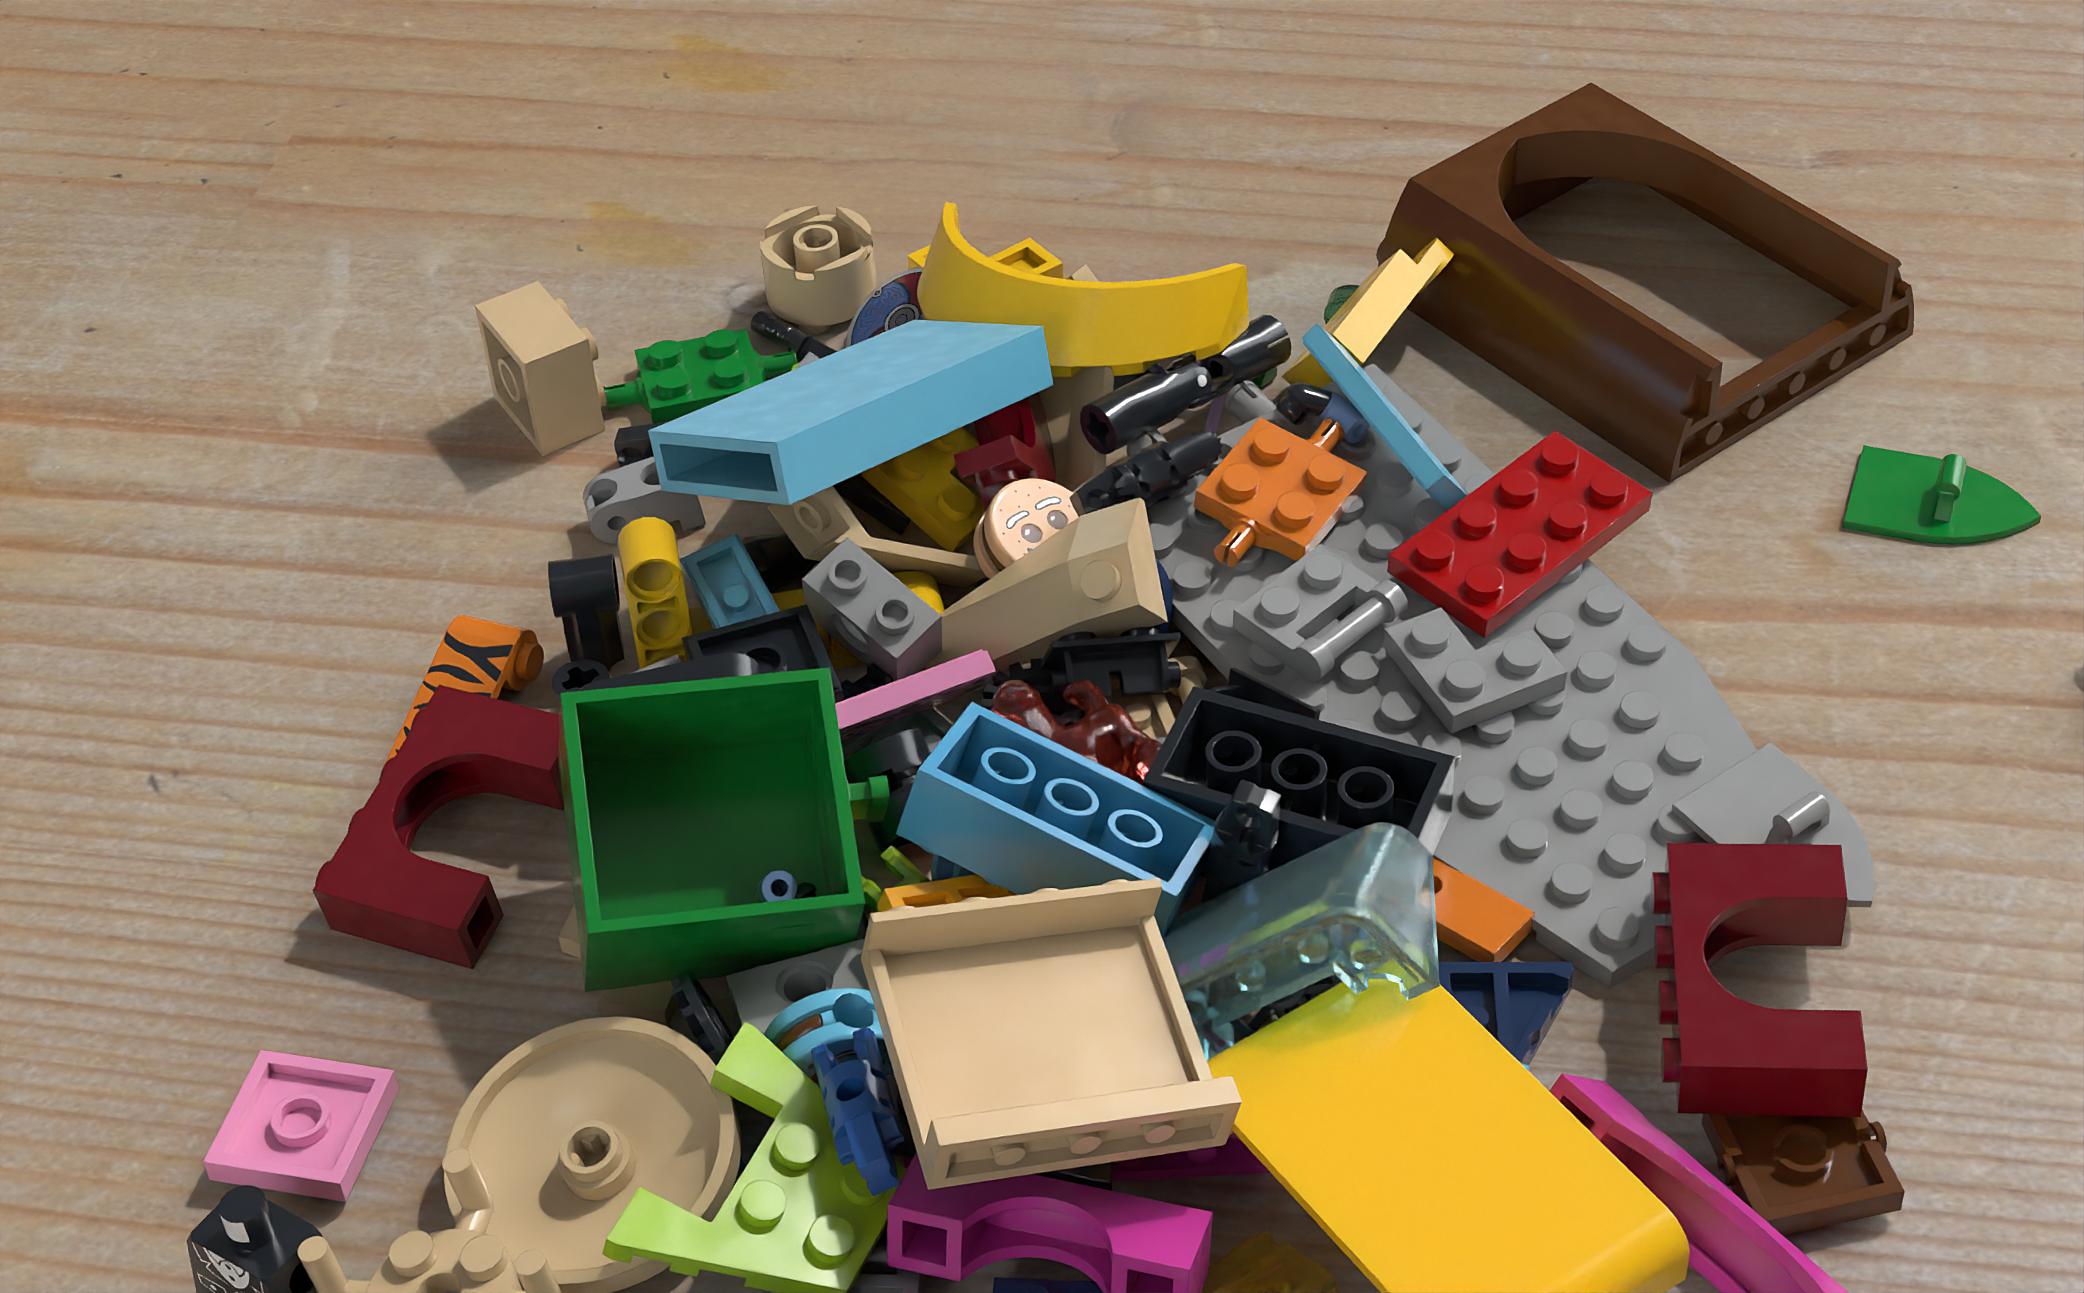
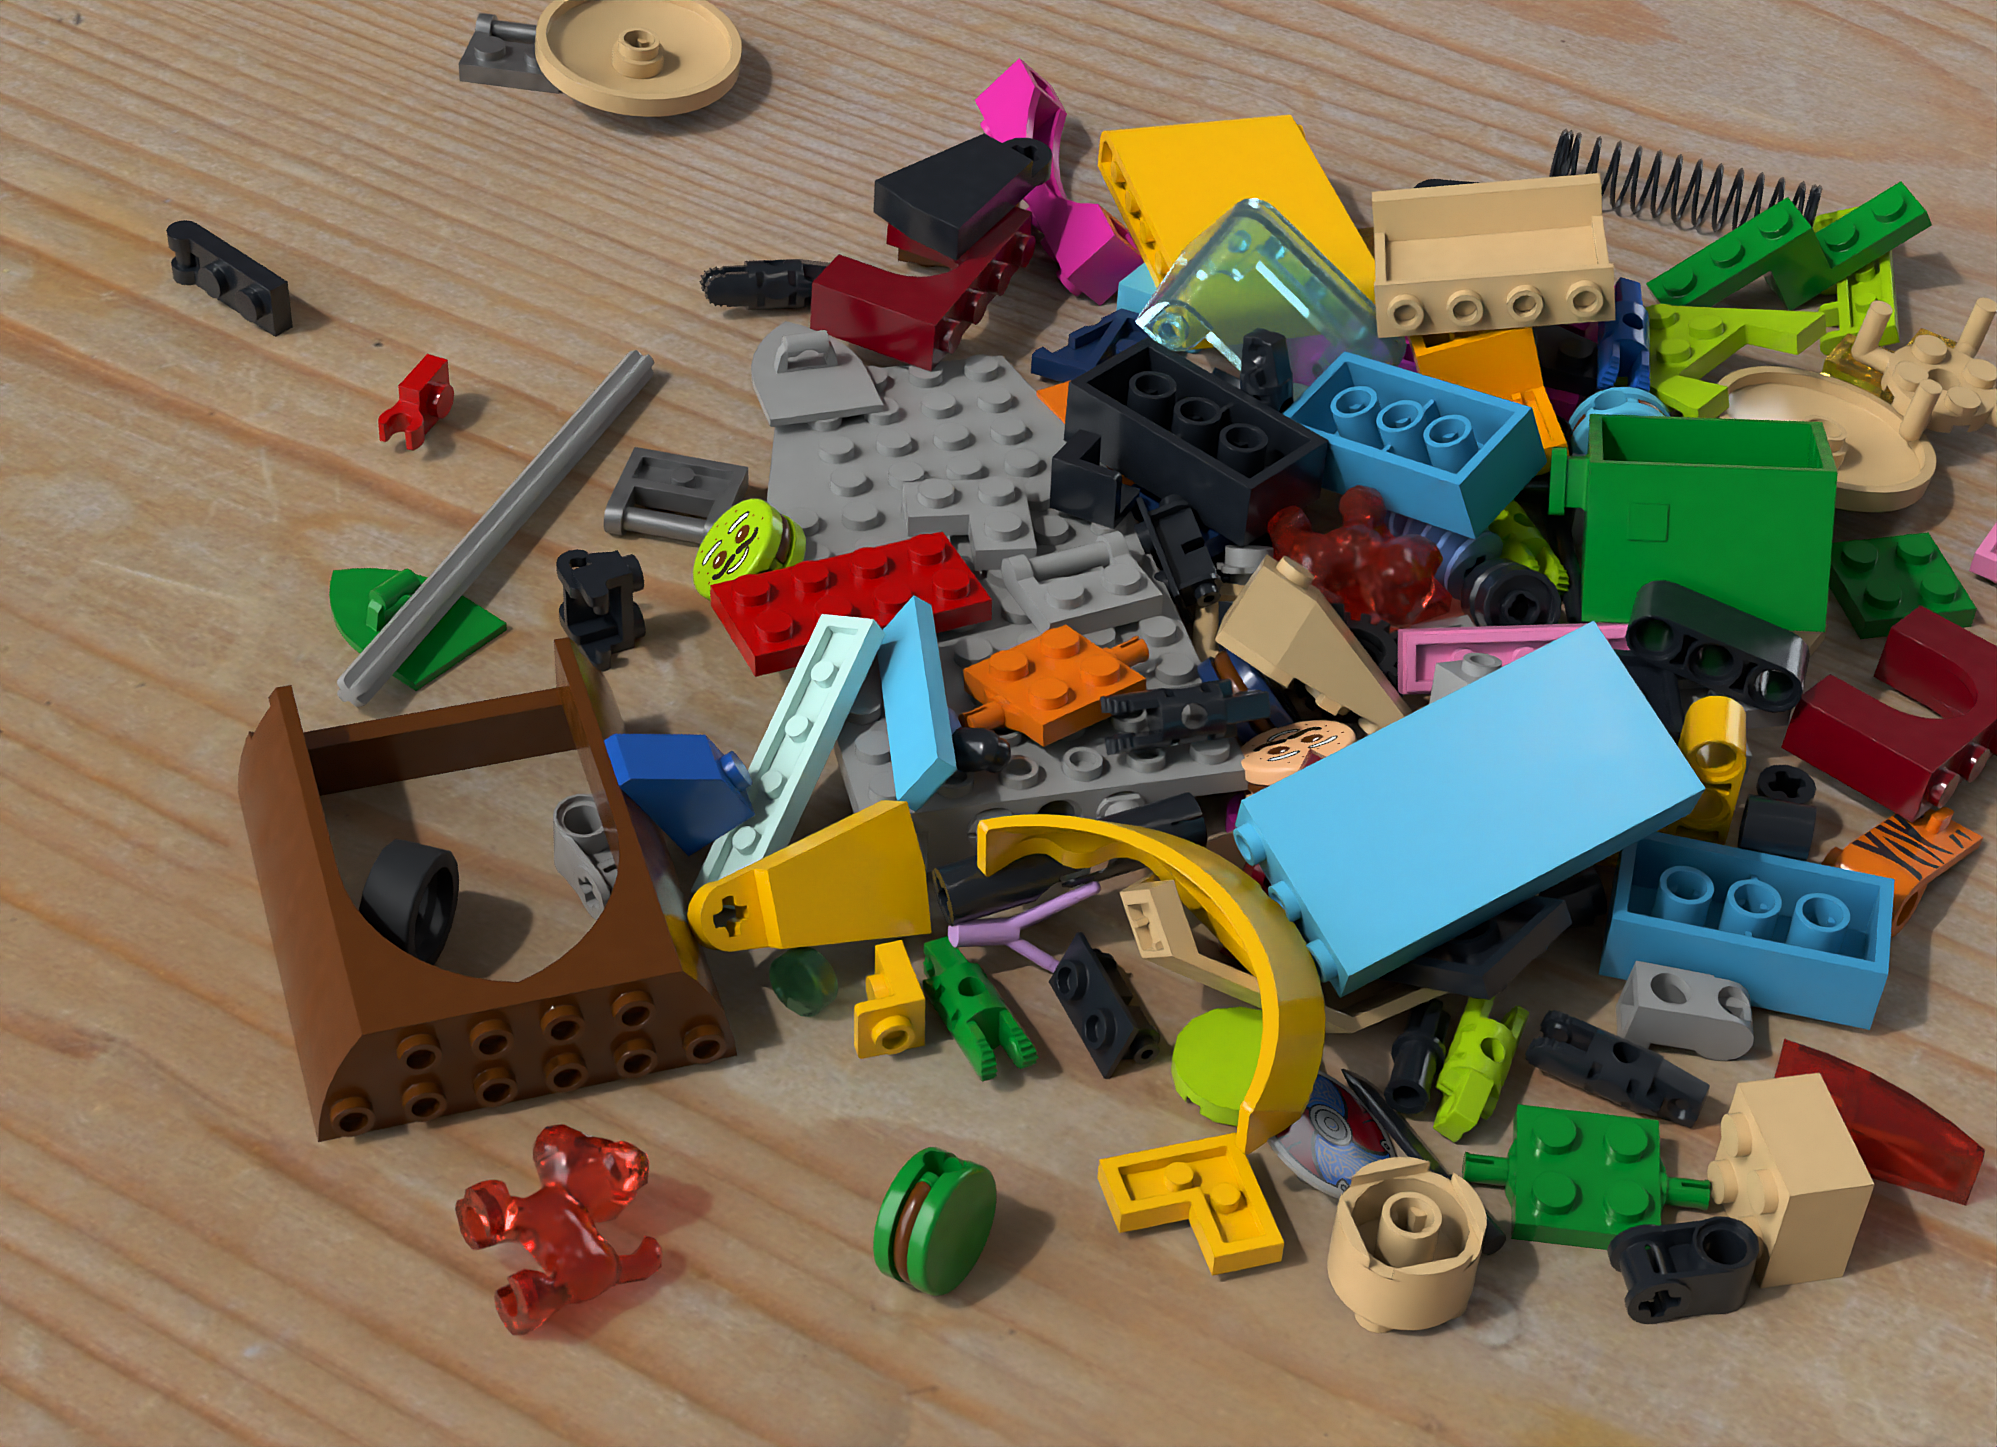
camera: 165 degrees left, 0 degrees up
(473, 1026) = (1891, 577): none -> green plate
(482, 463) = (1892, 1129): none -> clear red slope
(521, 535) = (1780, 926): none -> dark azure brick
(618, 325) = (1687, 1269): none -> black piece
(1150, 179) = (934, 1221): none -> green head
(1275, 297) = (895, 1006): none -> yellow bracket
(1379, 707) = (1085, 487): none -> black panel
(1400, 118) = (581, 1185): none -> clear red animal
(1470, 403) = (798, 742): none -> light aqua plate
(1536, 332) = (683, 784): none -> blue slope
(1660, 585) = (747, 541): none -> lime head
(1671, 234) = (412, 897): none -> black tyre
(1757, 506) = (600, 603): none -> black piece
(1769, 1020) = (961, 191): none -> black piece
(1803, 676) = (677, 485): none -> flat silver plate
(1940, 973) = (763, 284): none -> black hinge
(1941, 614) = (493, 531): none -> light grey axle

